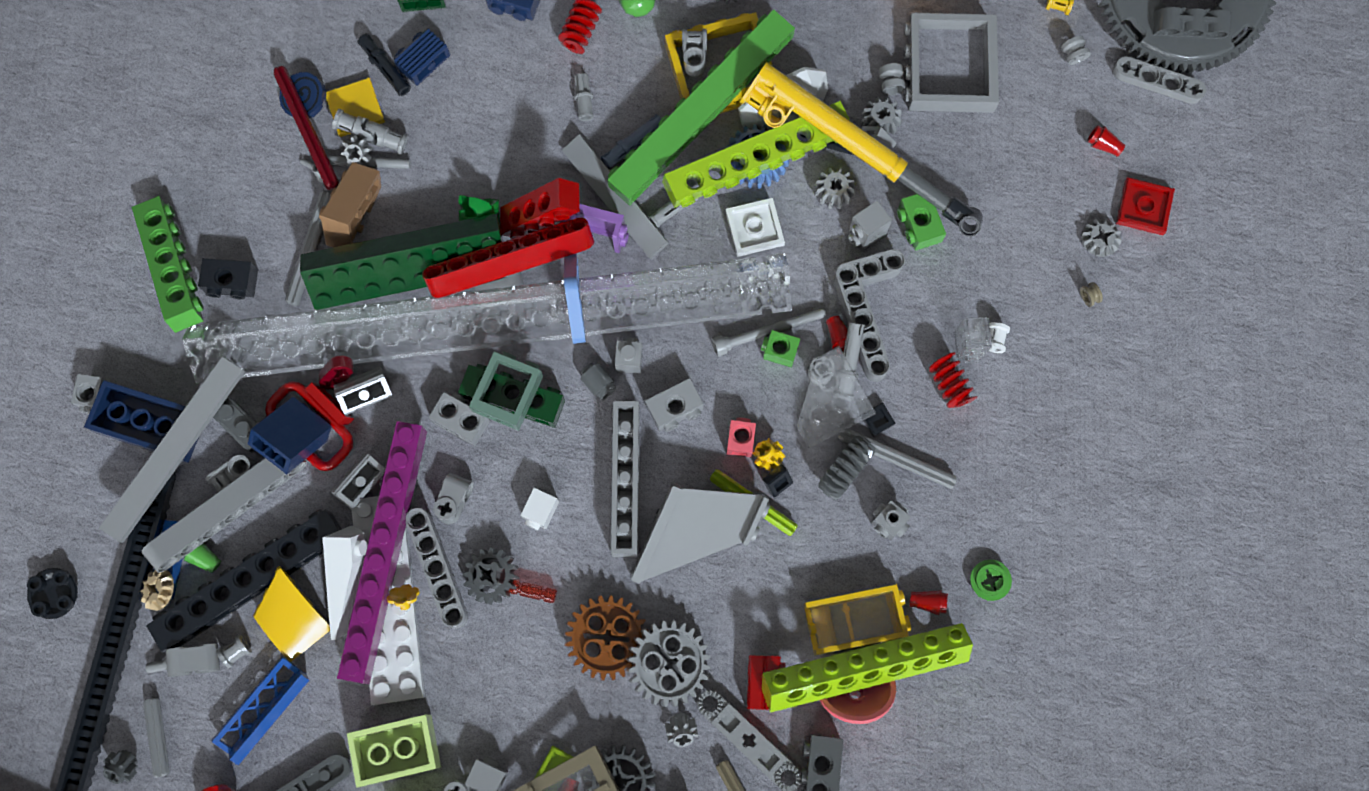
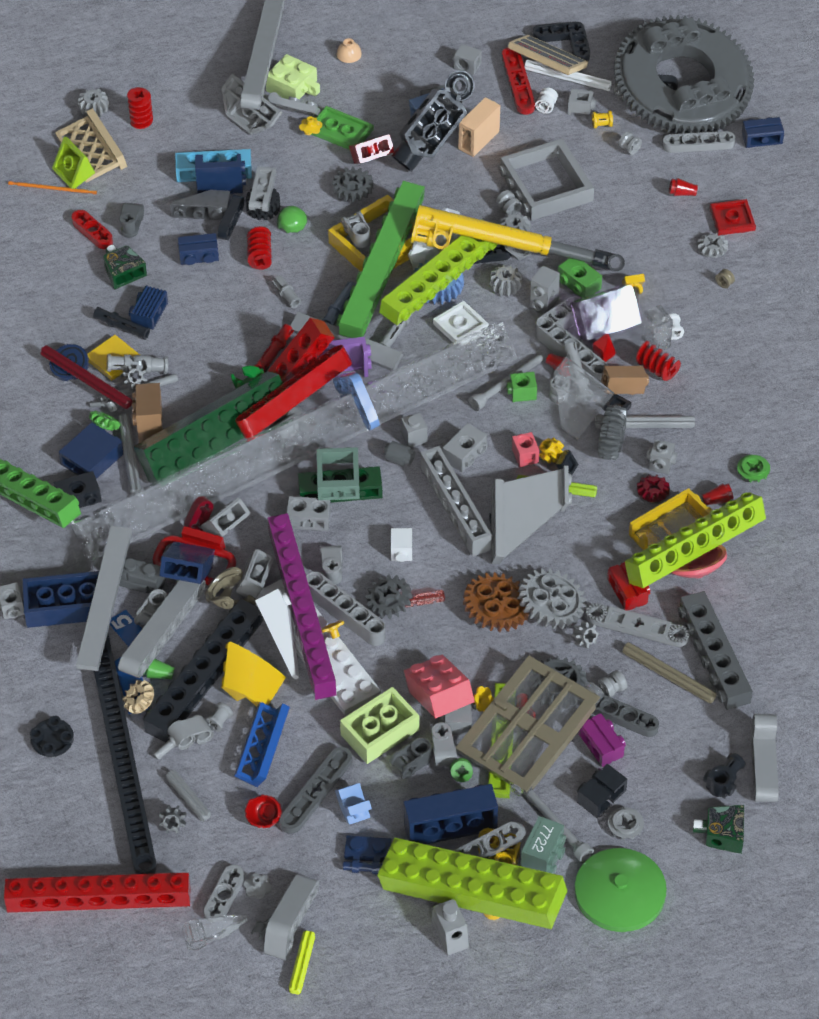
camera: 25 degrees left, 25 degrees down
(196, 473) = (125, 627): none -> blue sticker
(267, 230) = (91, 451): none -> dark blue brick
(292, 196) = (104, 420): none -> bright green gear
(316, 491) = (226, 580): none -> dark tan helmet
(478, 735) = (438, 686): none -> coral brick
(527, 763) = (482, 698): none -> yellow plant
(528, 174) = (277, 343): none -> red pin
(855, 565) = (653, 494): none -> dark red gear
(900, 335) = (604, 348): none -> red slope
(900, 394) = (625, 379): none -> medium nougat brick
(923, 290) = (605, 312): none -> brick
(980, 253) = (634, 280): none -> yellow tile
(1242, 99) = (762, 132): none -> dark blue brick

